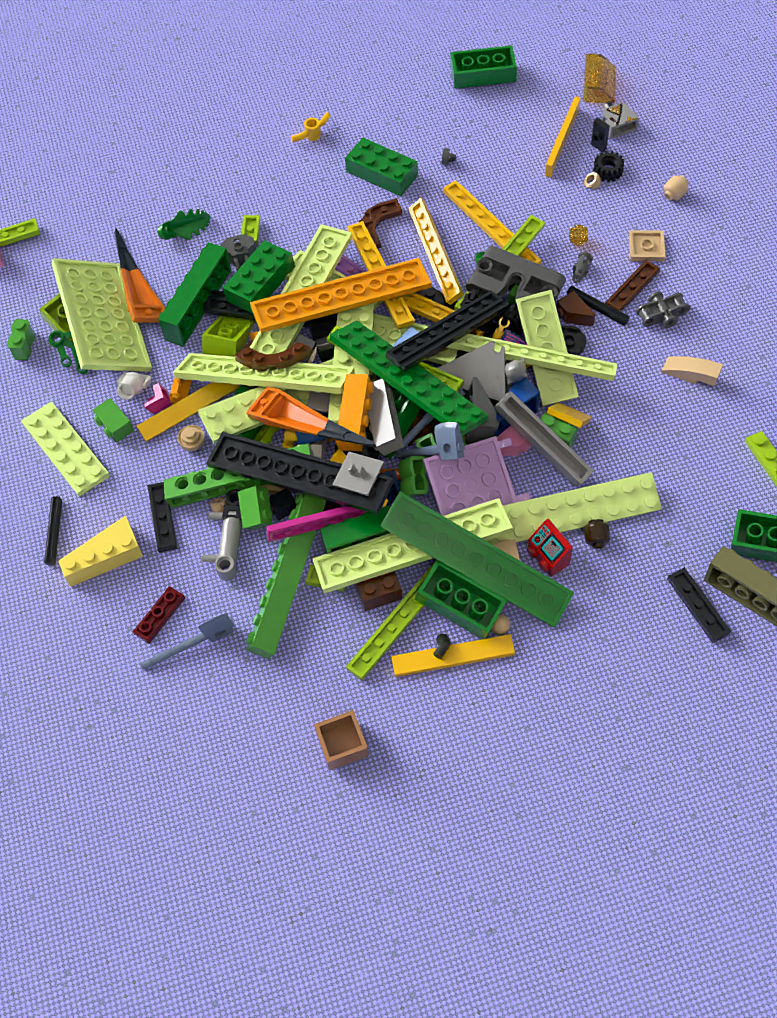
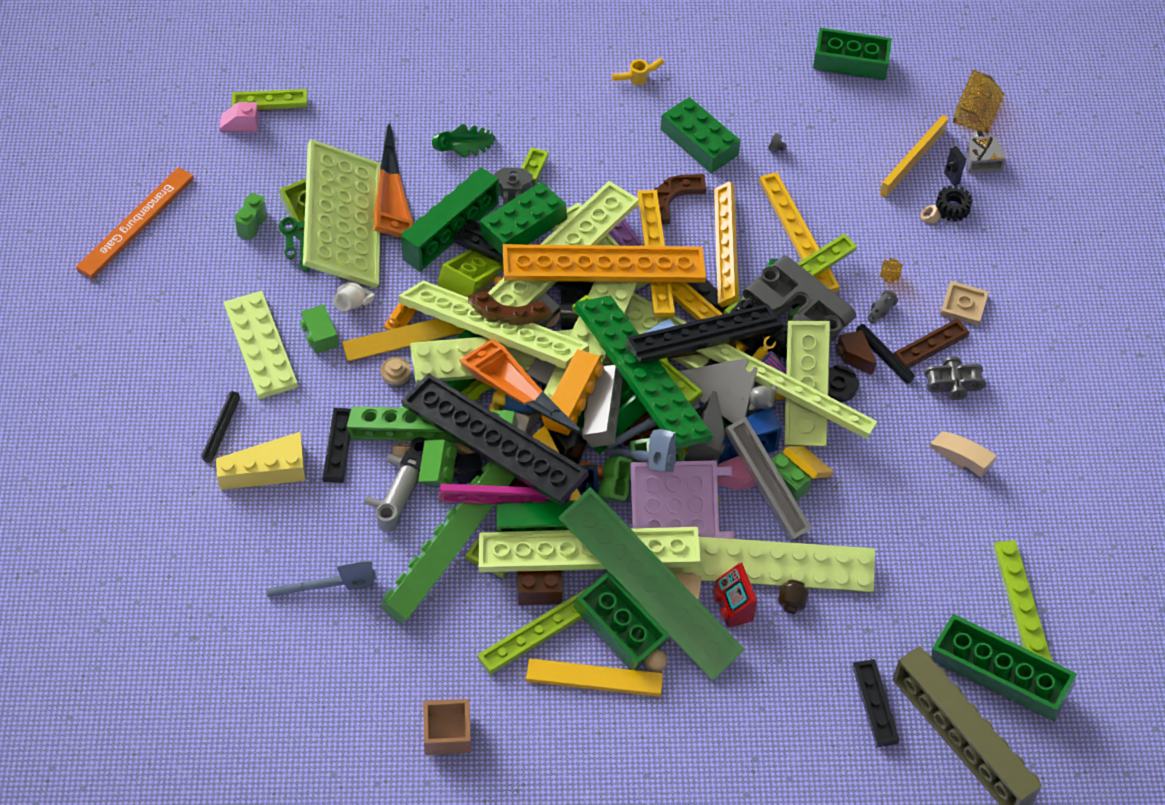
camera: 10 degrees right, 5 degrees down
(153, 623) = (294, 550): dark red tile -> none
(159, 401) = (374, 323): dark pink panel -> none
(358, 473) = (554, 456): light grey piece -> none
(443, 645) = (587, 663): pearl dark grey arm -> none
(676, 187) = (1020, 248): tan head -> none

